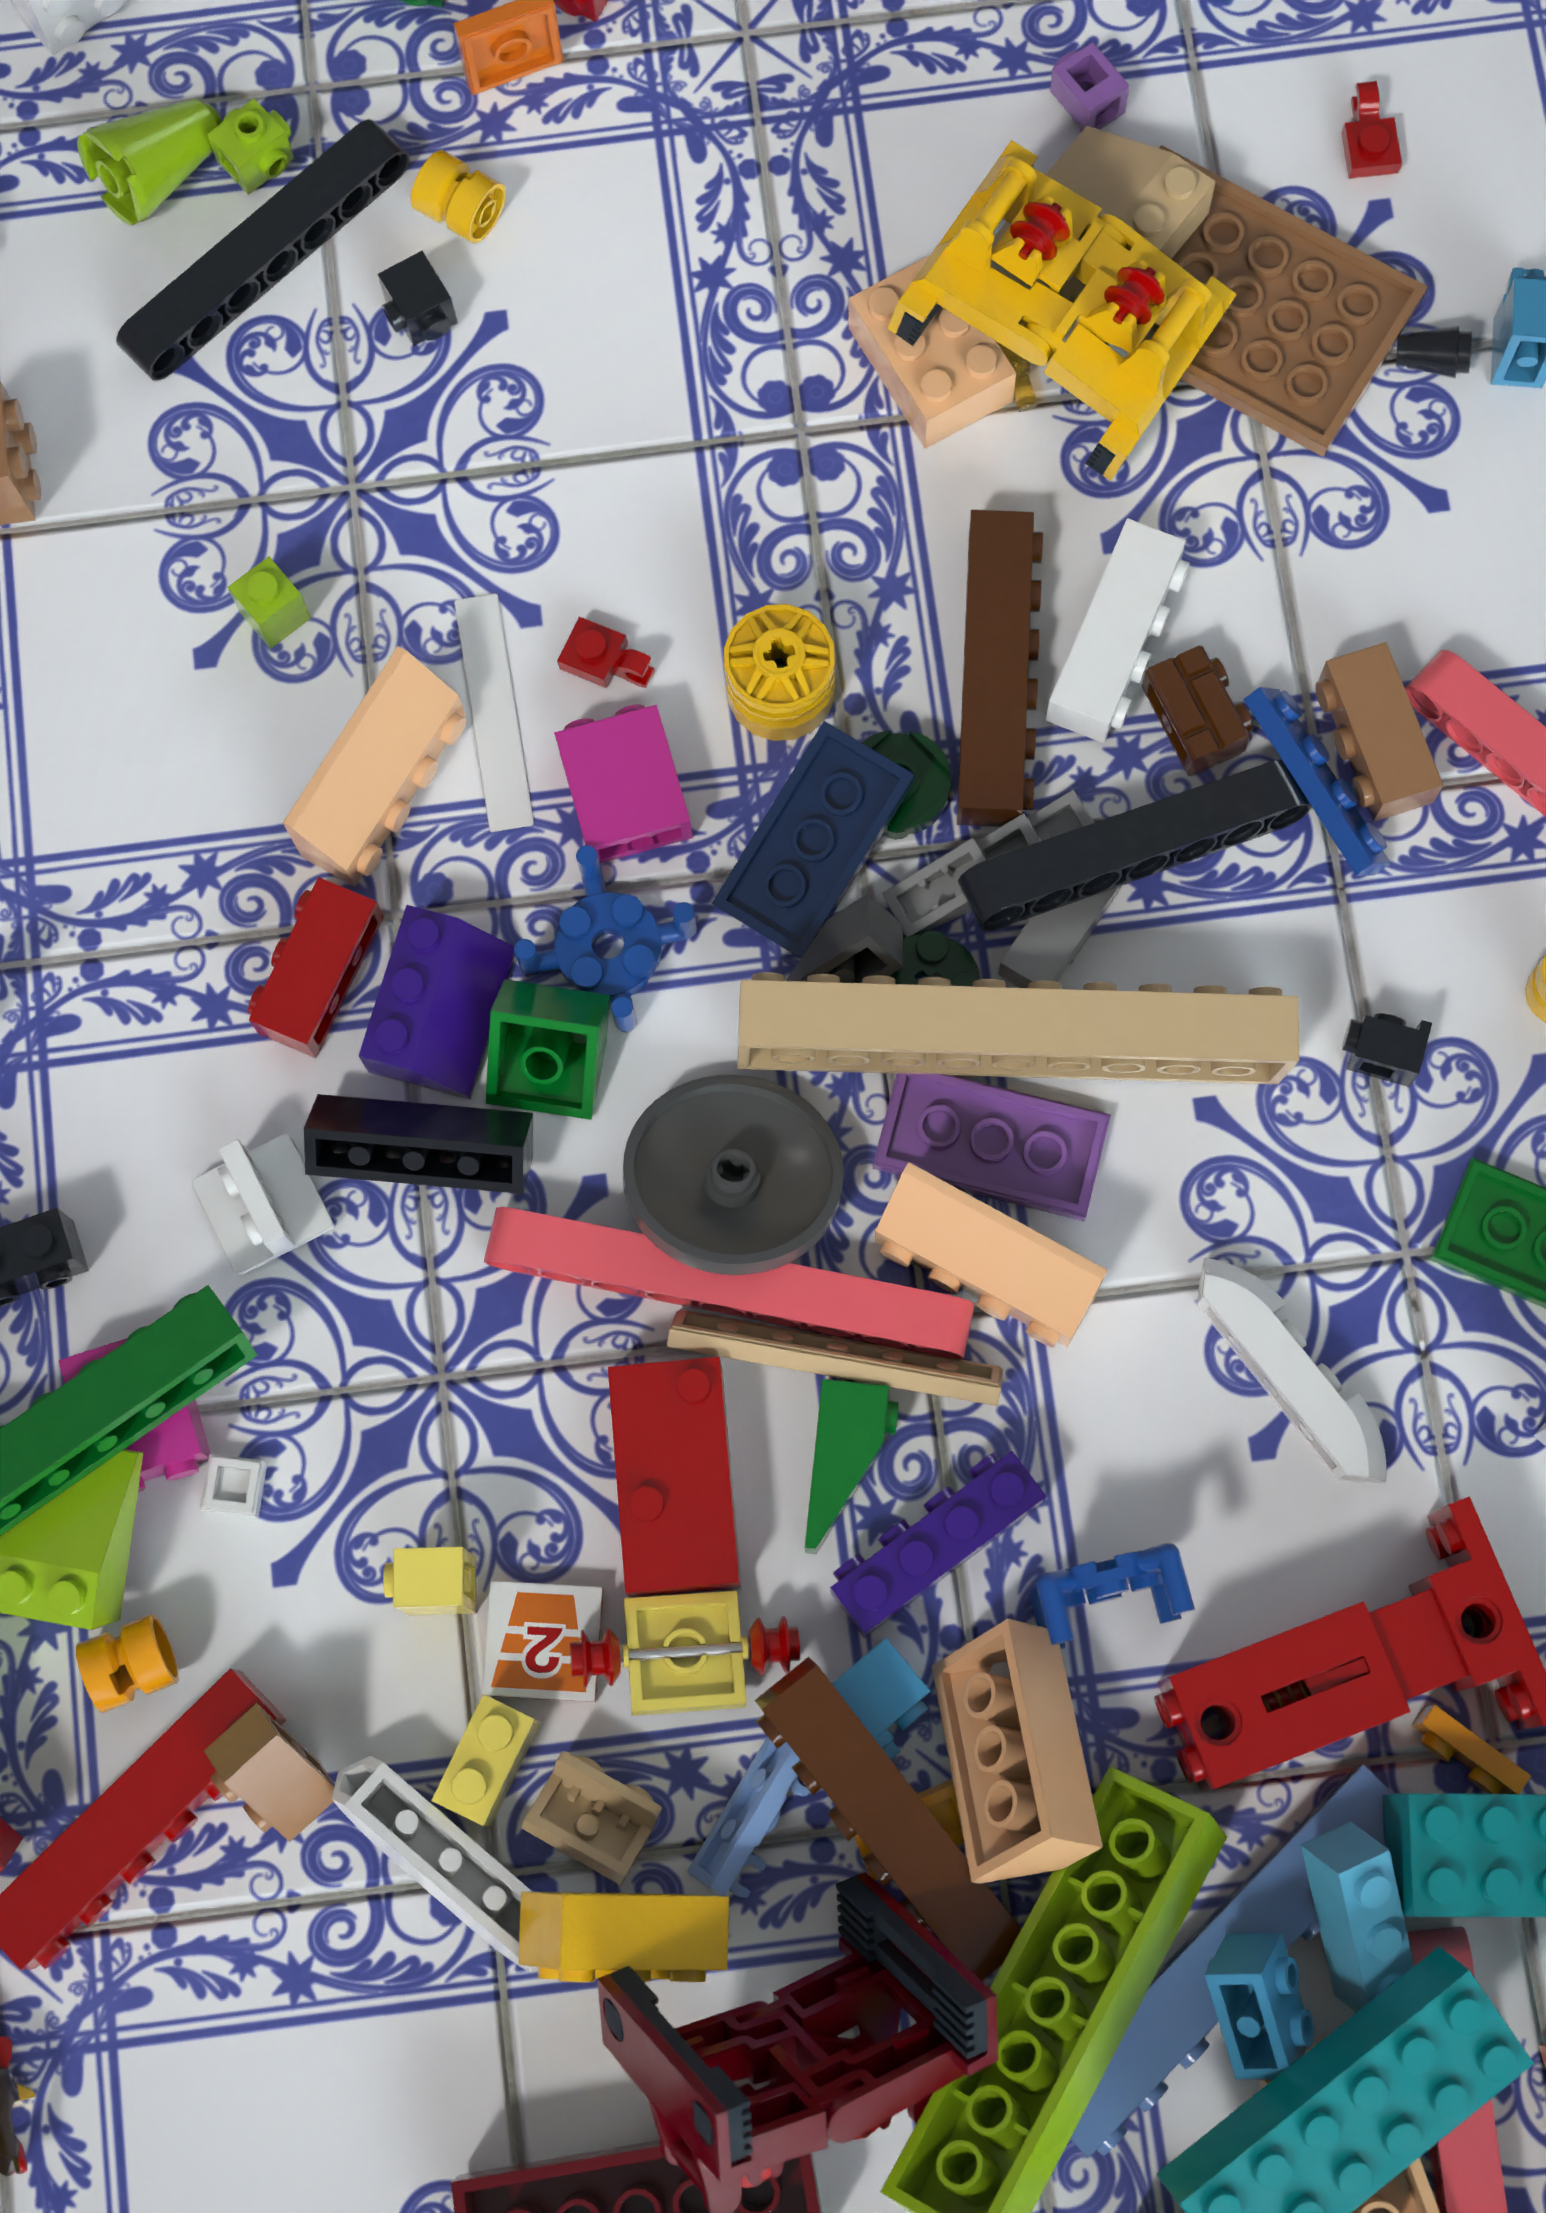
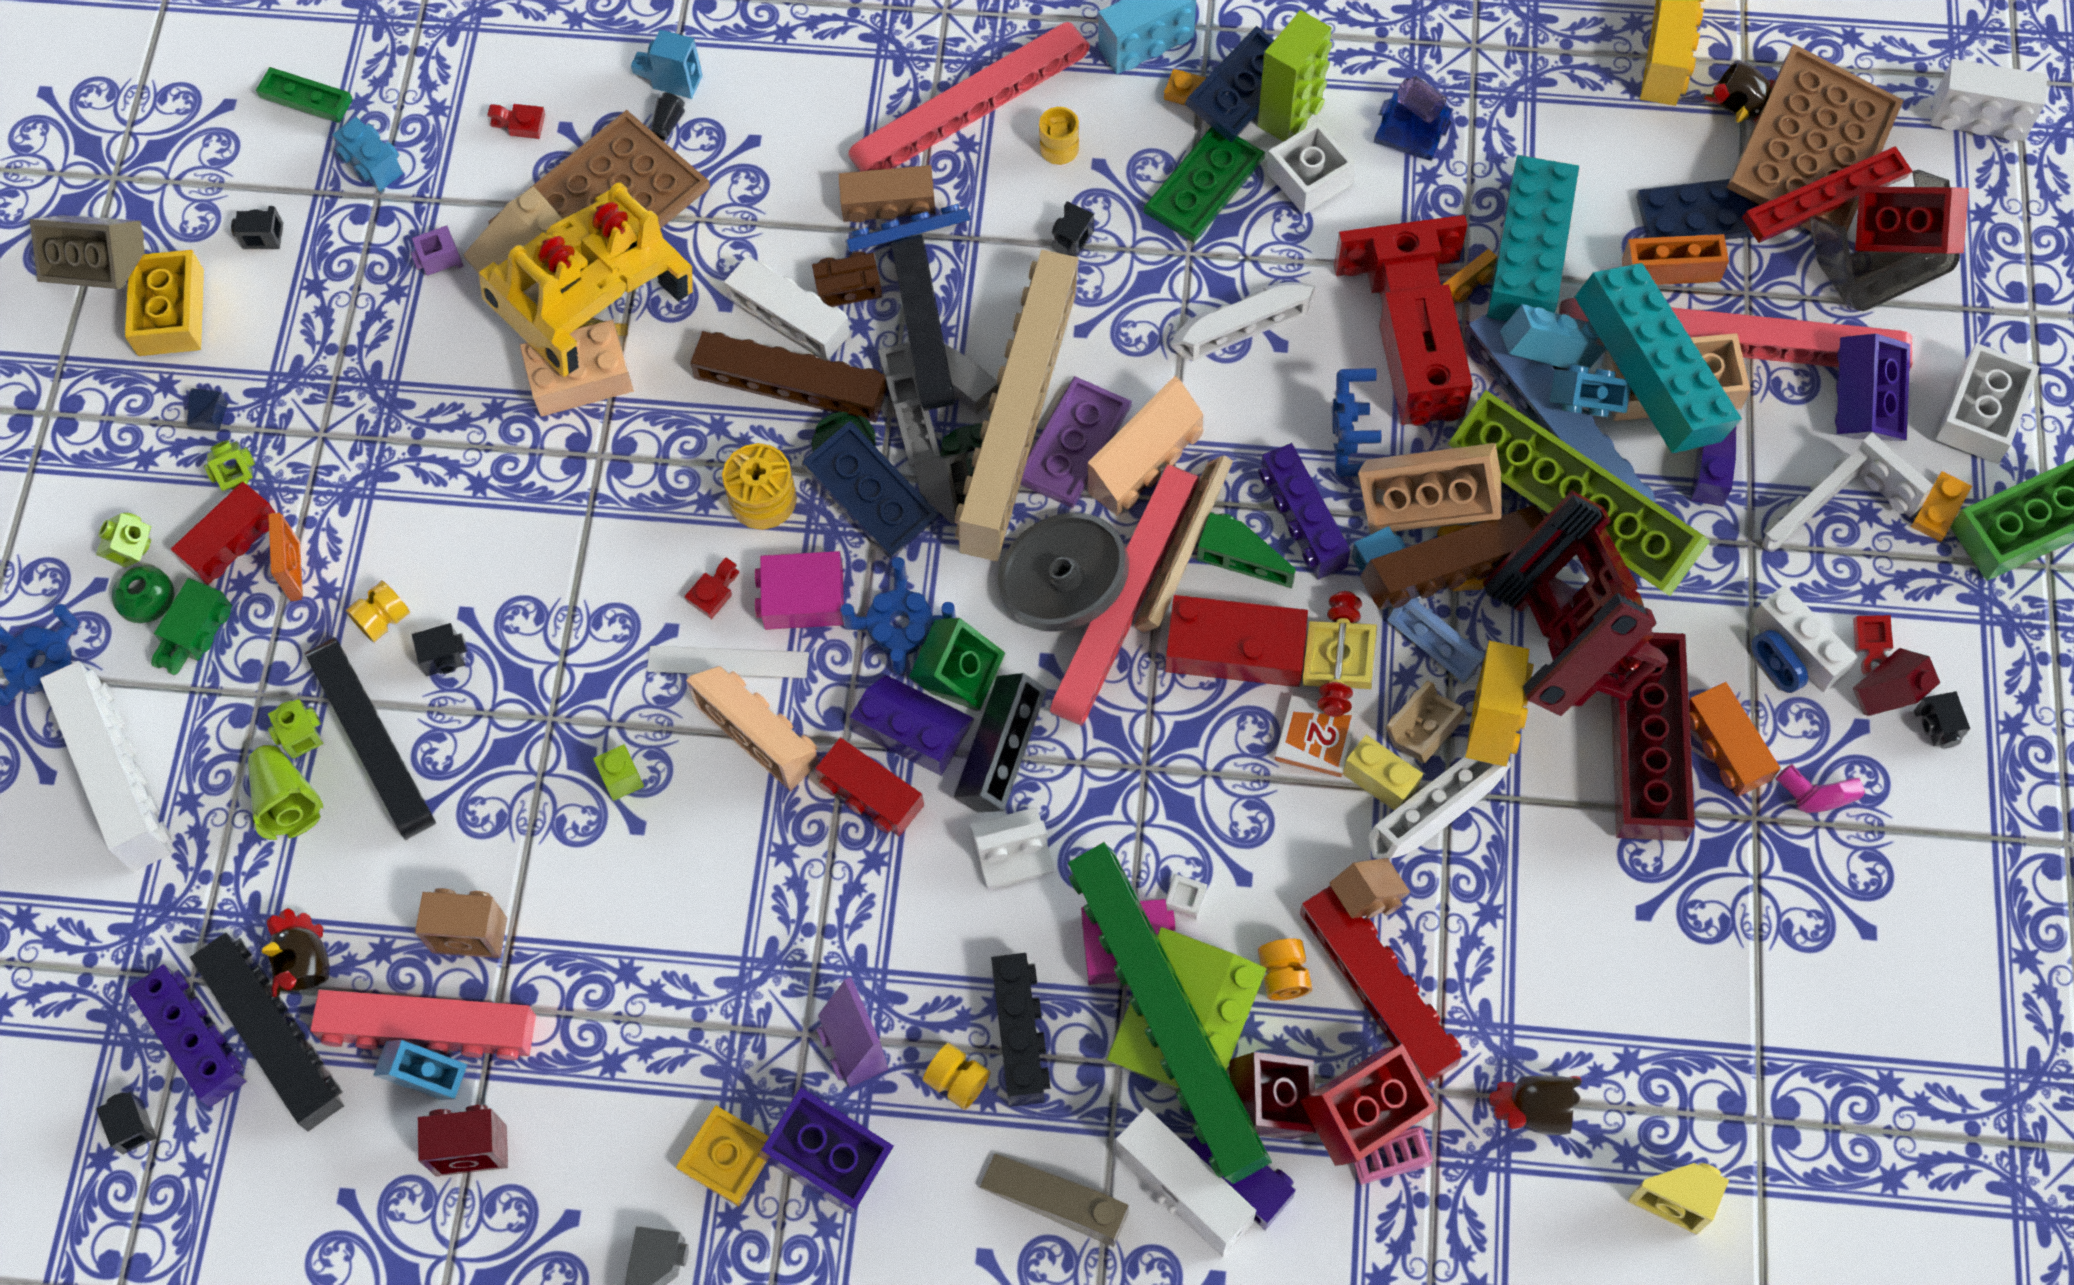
camera: 80 degrees left, 10 degrees down
(431, 1581) = (1272, 778): light yellow brick -> none

